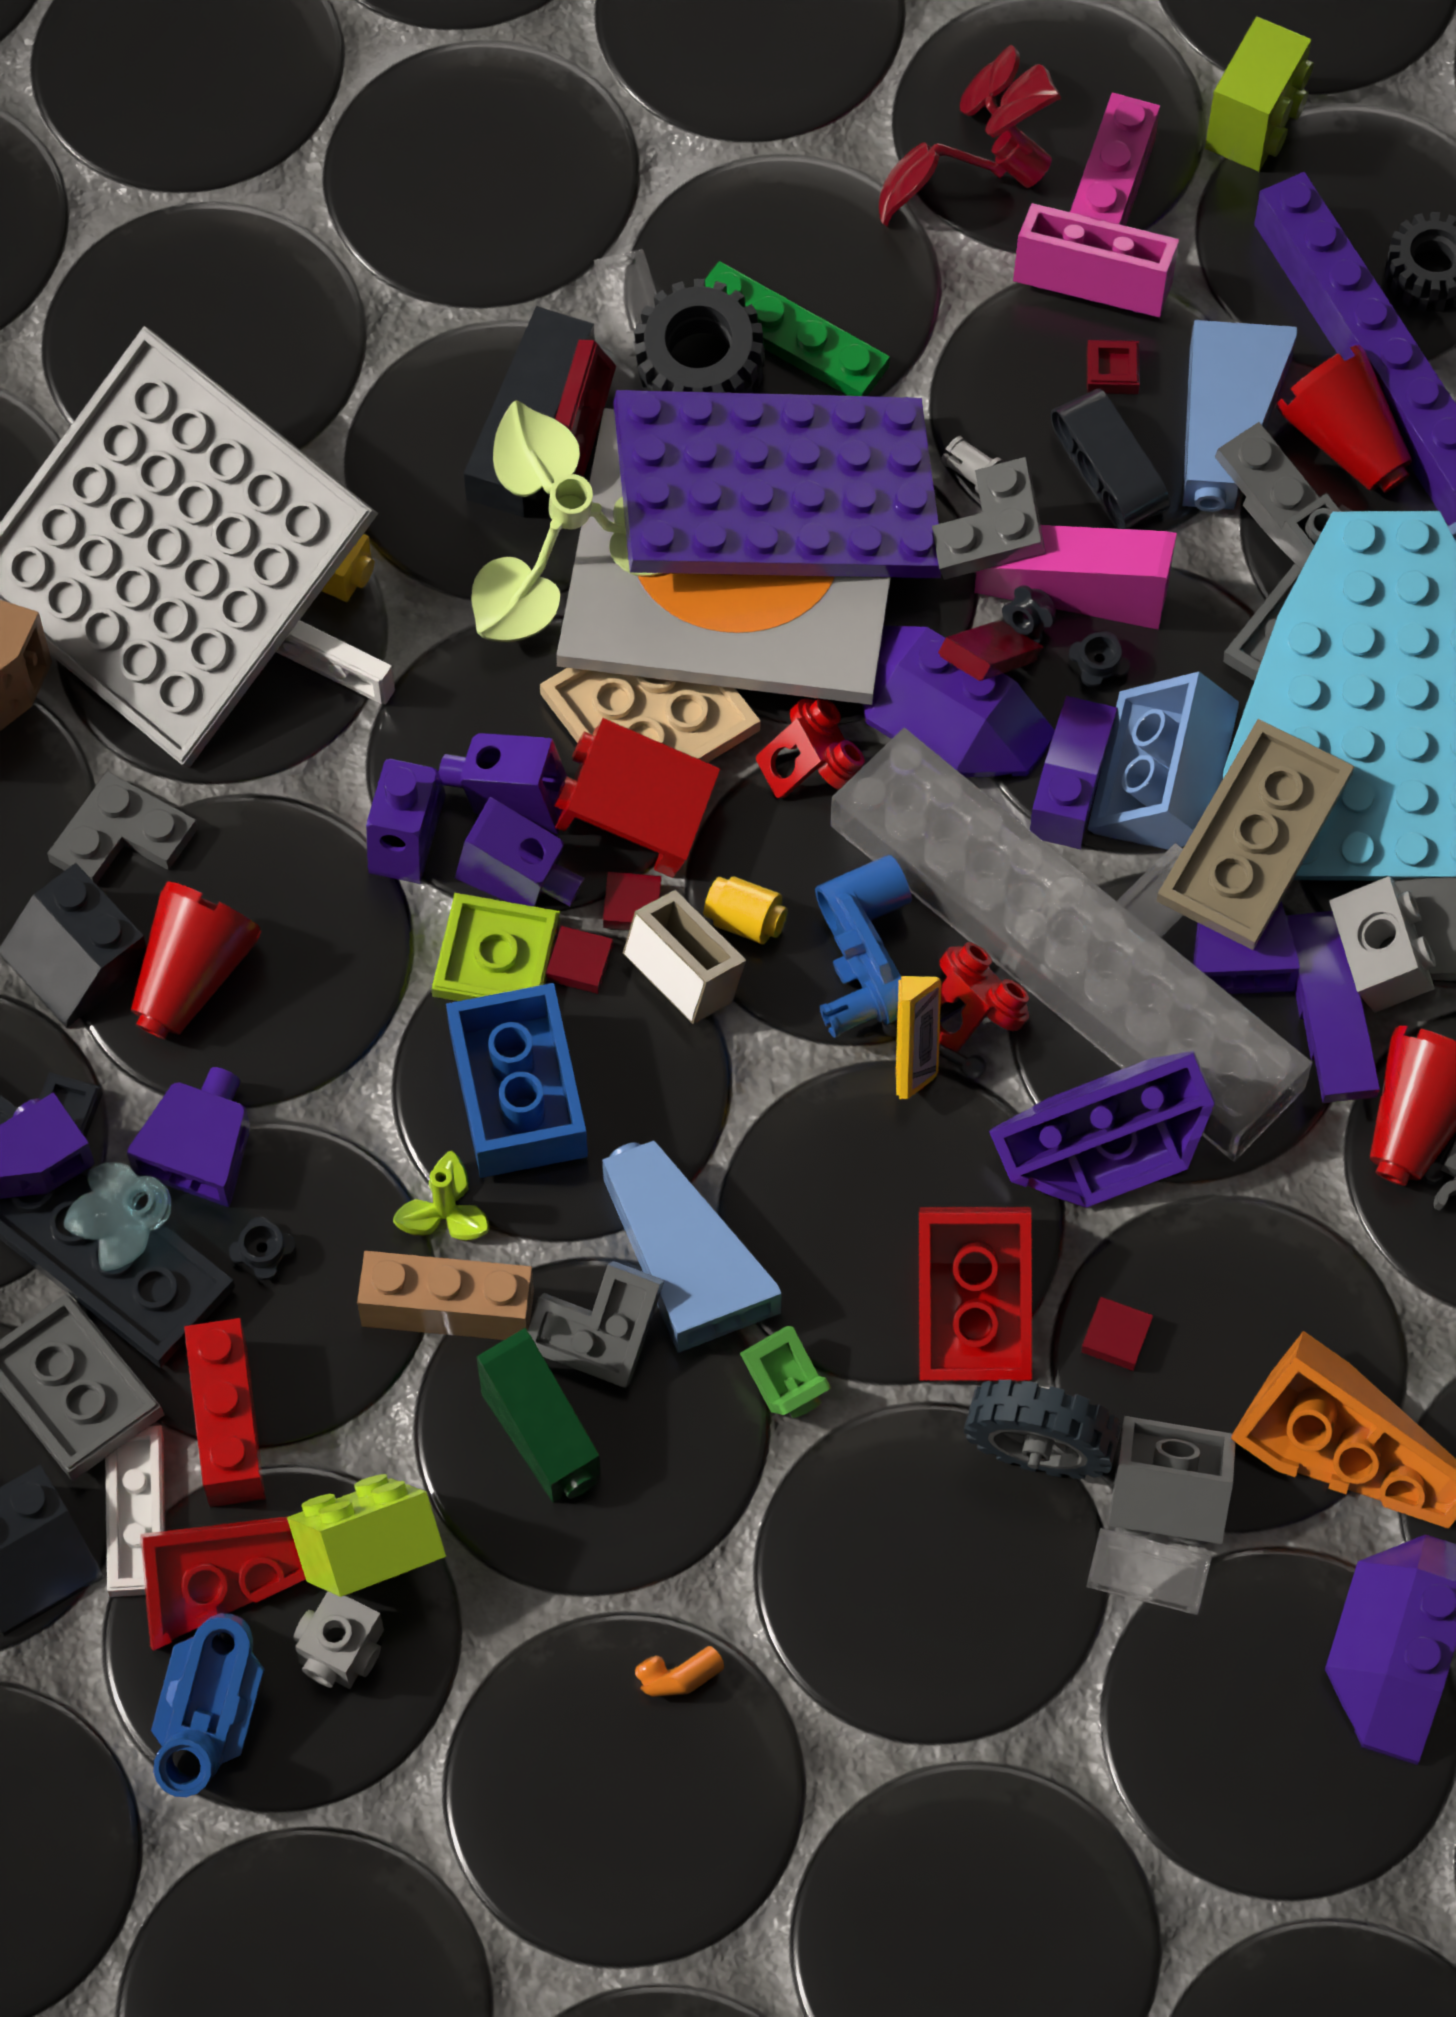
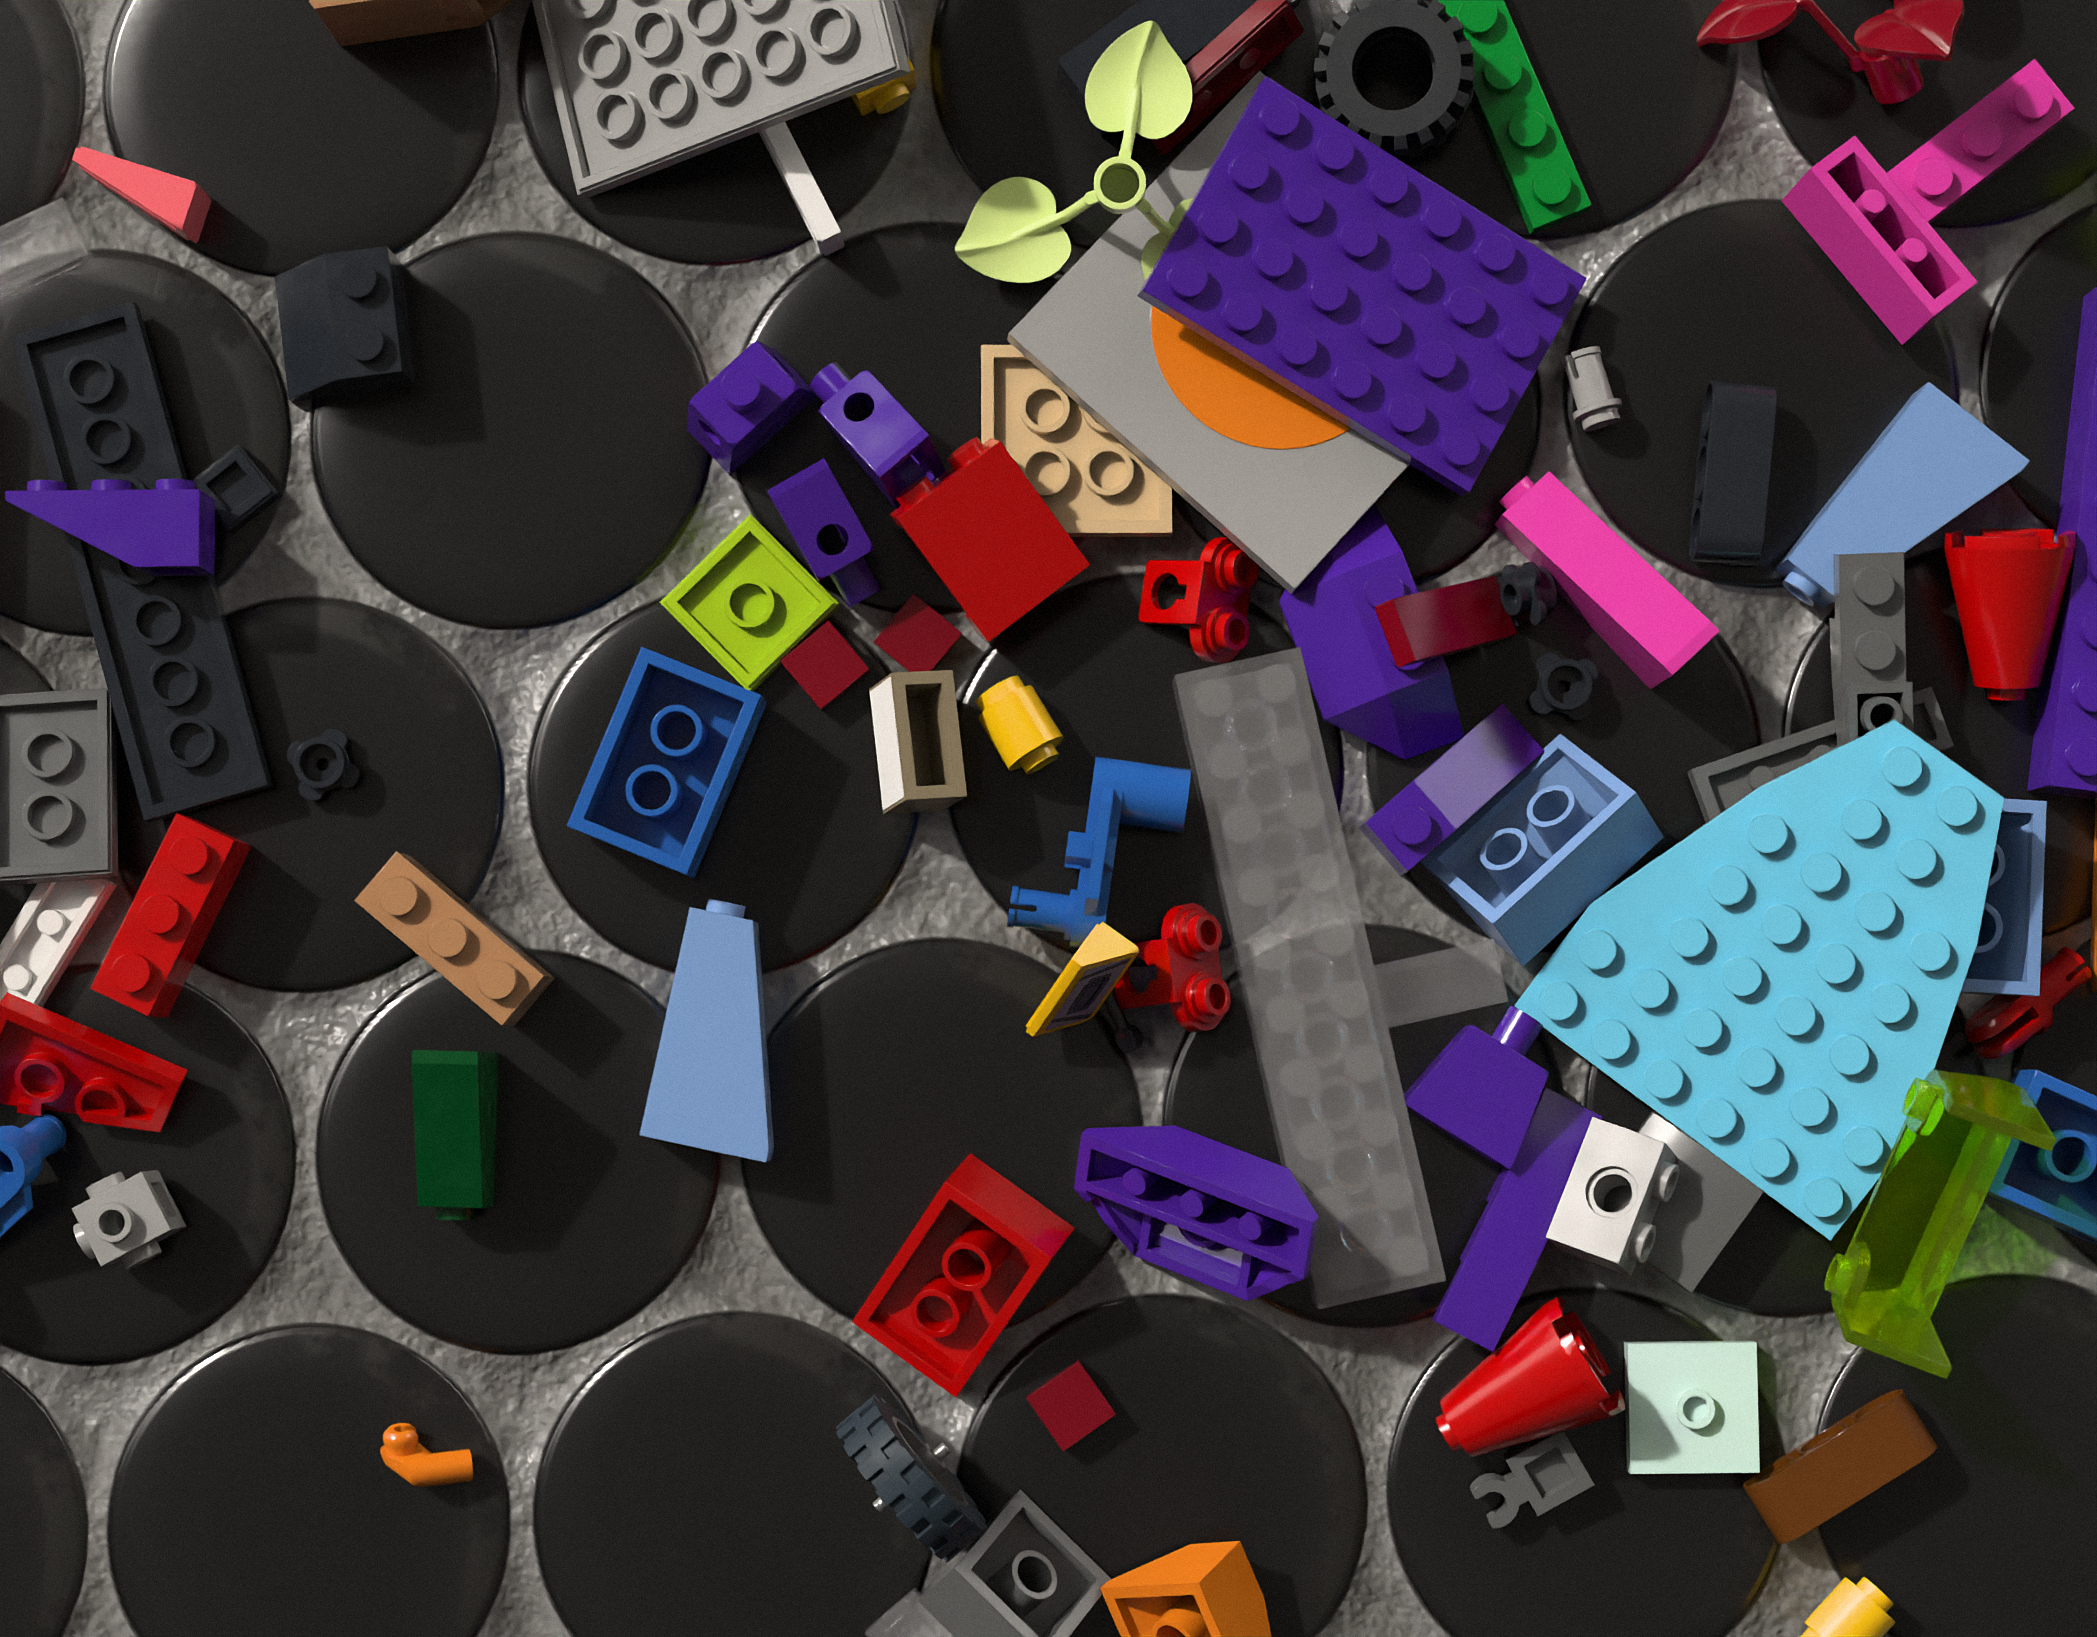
camera: 35 degrees right, 20 degrees up
(111, 1213) = (189, 646): clear light blue plate -> none
(118, 817) = (476, 208): dark grey plate -> none
(188, 958) = (440, 416): red cone -> none
(195, 1138) = (329, 611): dark purple torso -> none
(365, 1535) = (202, 1147): lime brick -> none
(448, 1184) = (498, 832): lime plant -> none
(600, 1340) = (573, 1083): dark grey plate -> none
(785, 1373) = (723, 1237): bright green bracket -> none
(1002, 533) = (1555, 496): dark grey plate -> none
(1113, 366) = (1815, 366): dark red tile -> none
(1255, 834) = (1564, 1007): dark tan plate -> none

